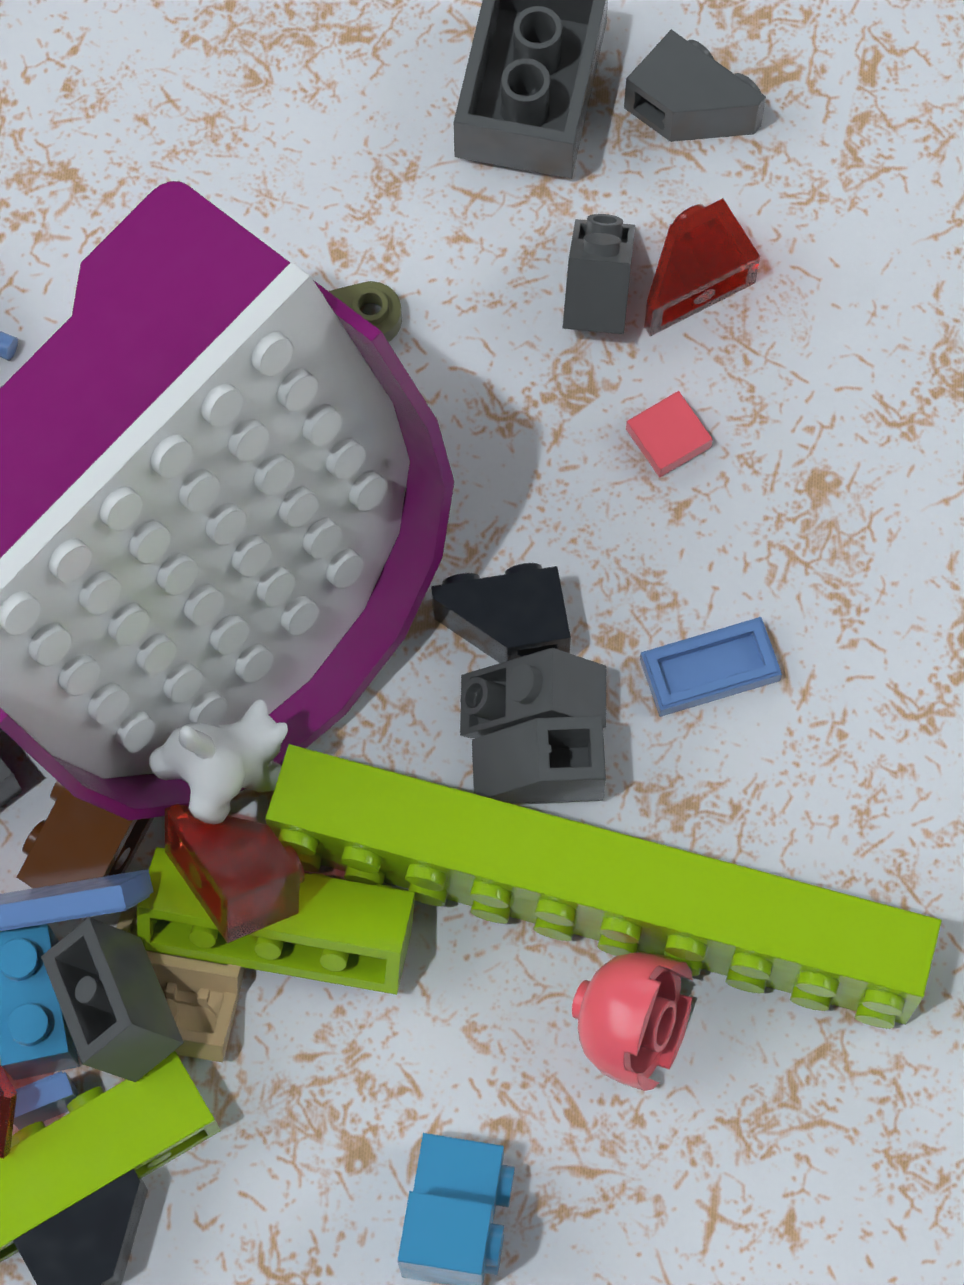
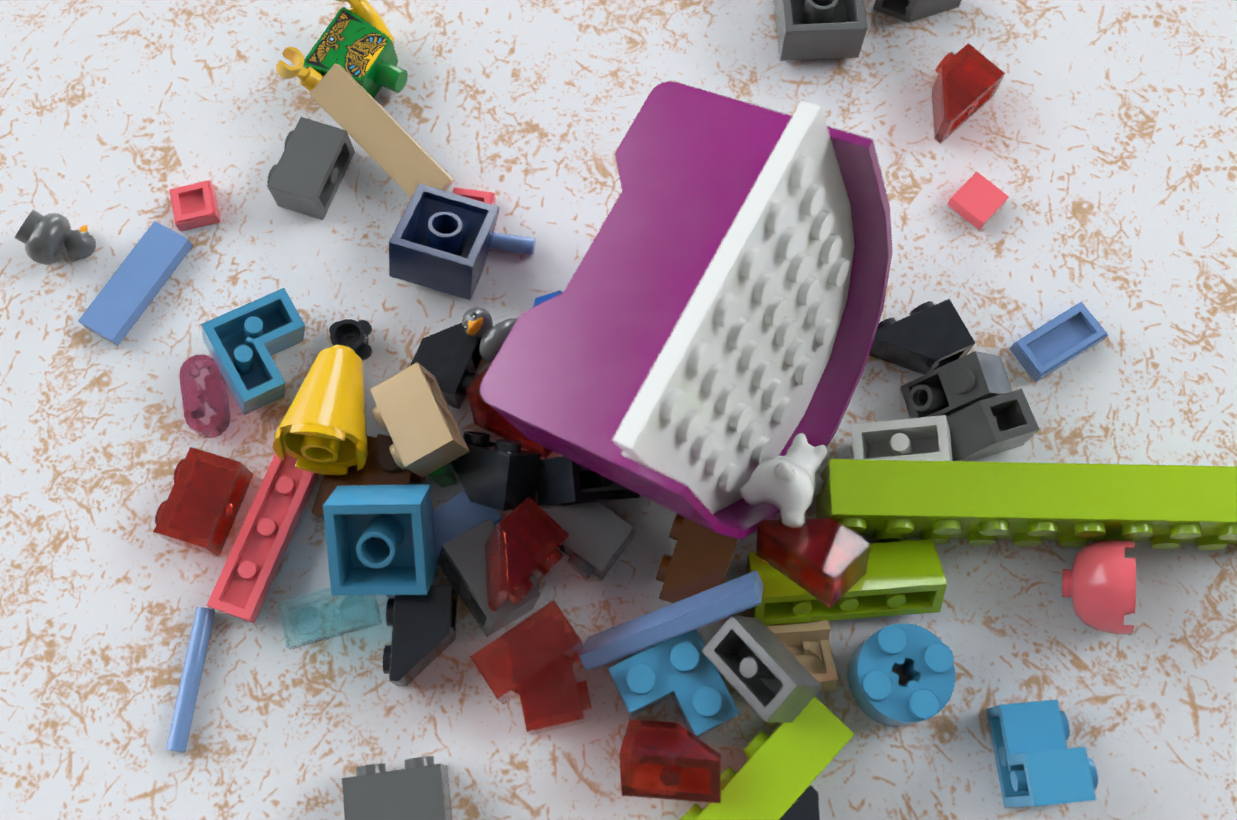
camera: 15 degrees left, 0 degrees up
(44, 1099) = (731, 744): medium blue tile -> none
(307, 1024) = (925, 663): none -> dark azure brick
(419, 748) = (903, 439): none -> white brick
(598, 274) = (902, 110): dark grey slope -> none

